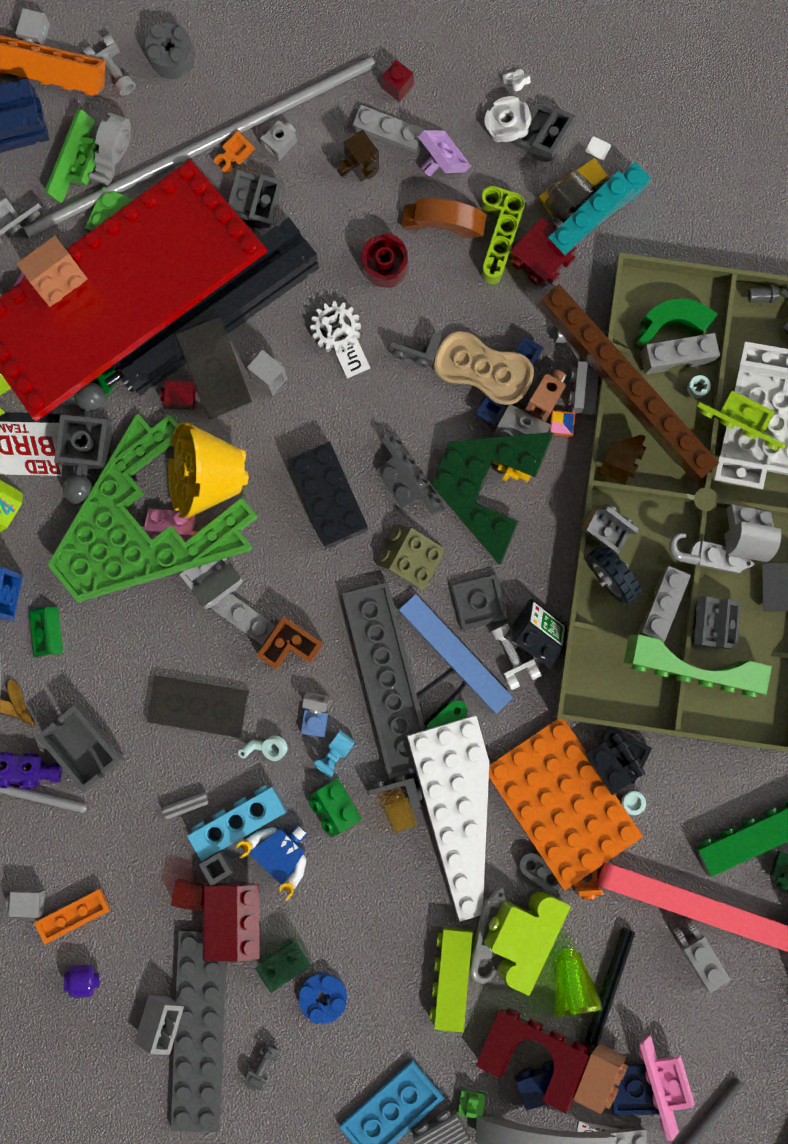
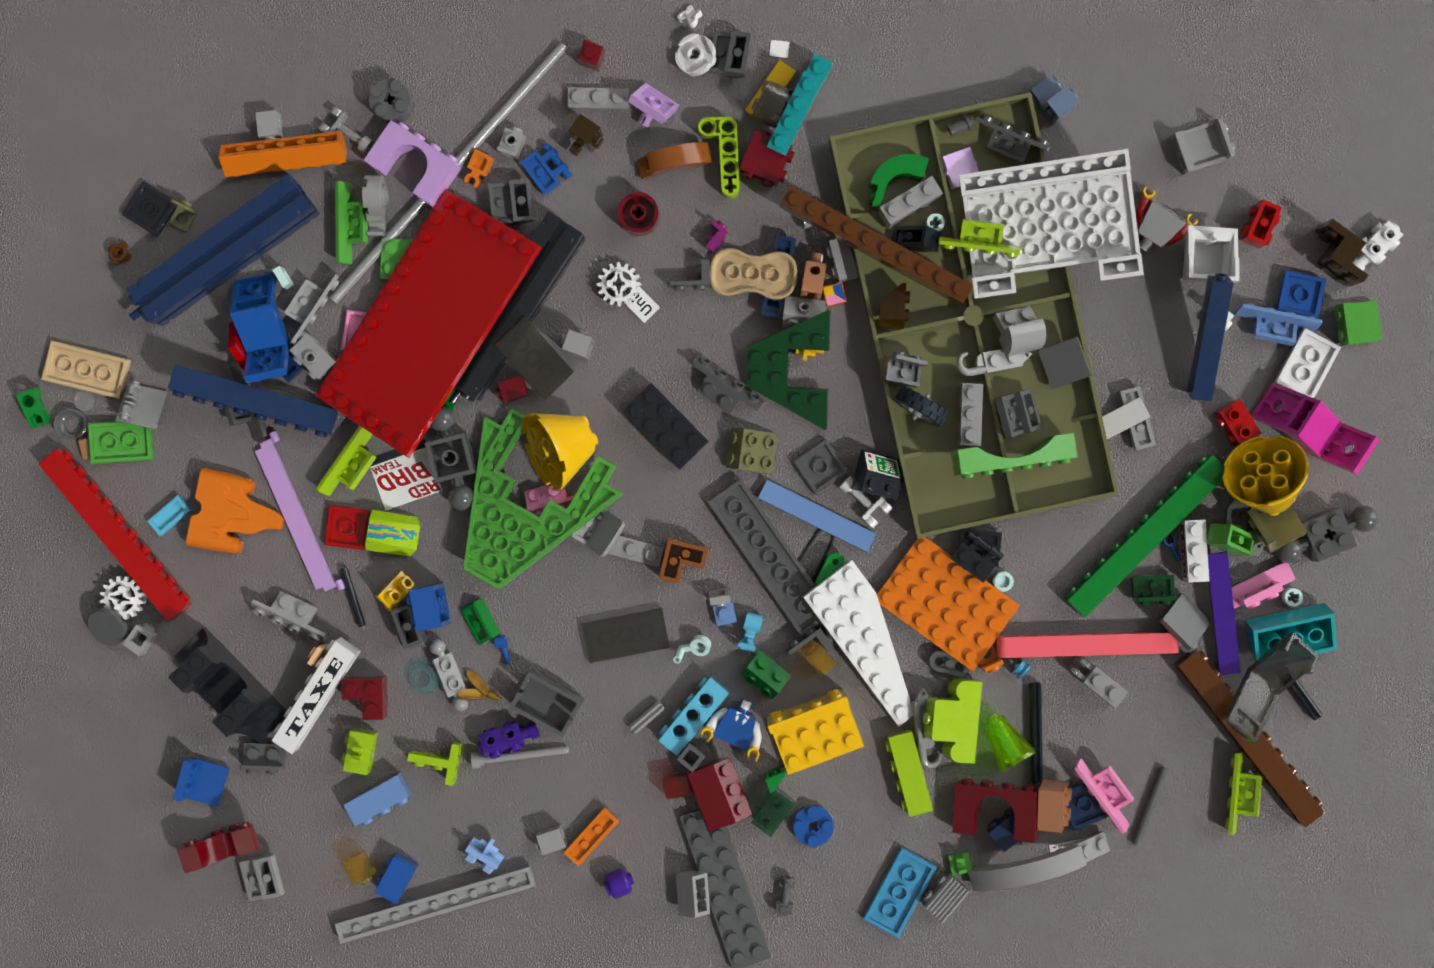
camera: 20 degrees left, 5 degrees up
(52, 271) = (373, 329): nougat brick -> none
(60, 663) = (501, 642): none -> blue hand
(160, 93) = (396, 141): none -> lavender arch
(298, 182) = (540, 171): none -> blue plate
(299, 926) = (774, 777): none -> green slope
(364, 891) = (815, 731): none -> yellow bracket
(456, 318) = (716, 240): none -> magenta bracket
(618, 908) = (1020, 668): none -> dark azure bush
(677, 393) = (917, 238): none -> black slope
(743, 331) = (957, 164): none -> lavender piece

